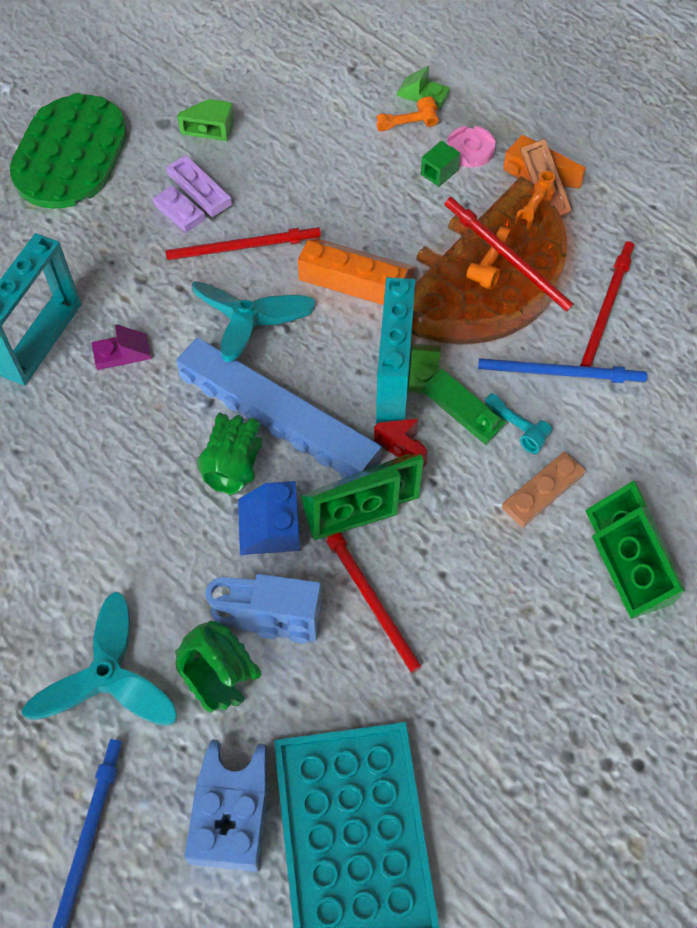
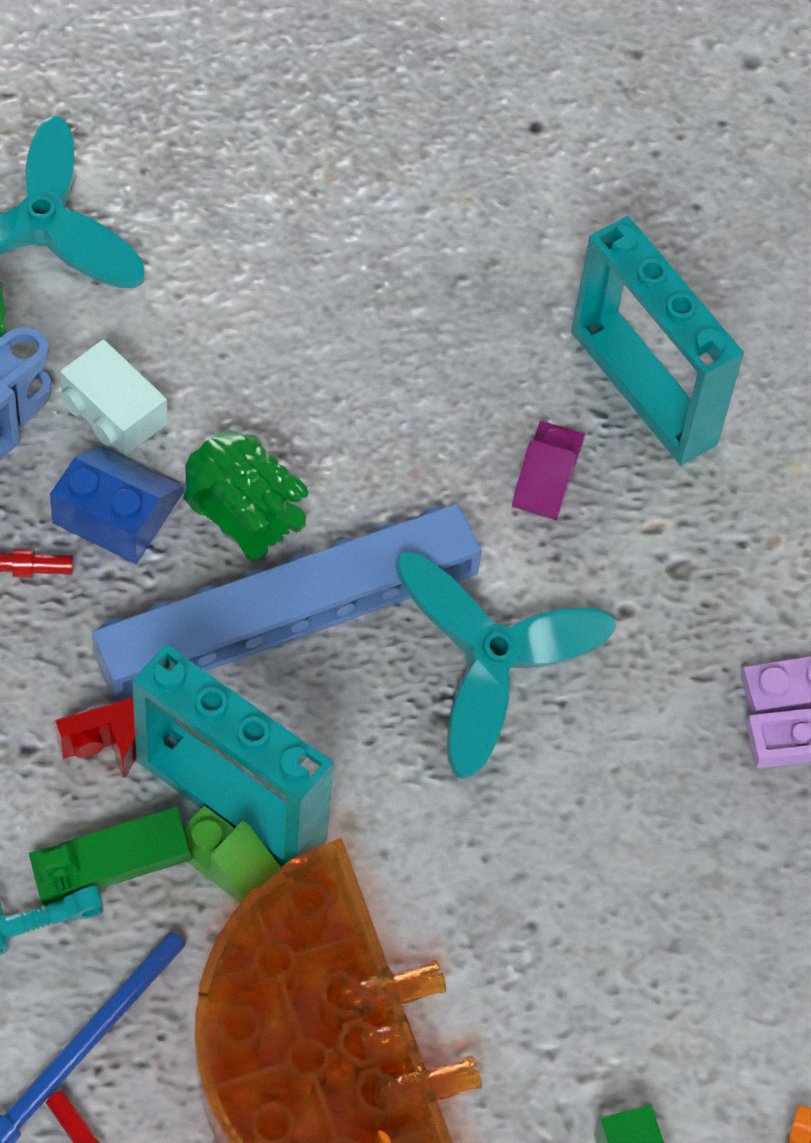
camera: 115 degrees right, 0 degrees up
(208, 556) = (113, 398): none -> light aqua brick
(293, 236) = (622, 816): red bar -> none
(349, 270) = (483, 866): orange slope -> none
(363, 496) = (59, 611): green slope -> none
(469, 219) = (406, 1017): red bar -> none
(485, 272) = (303, 996): orange brick -> none

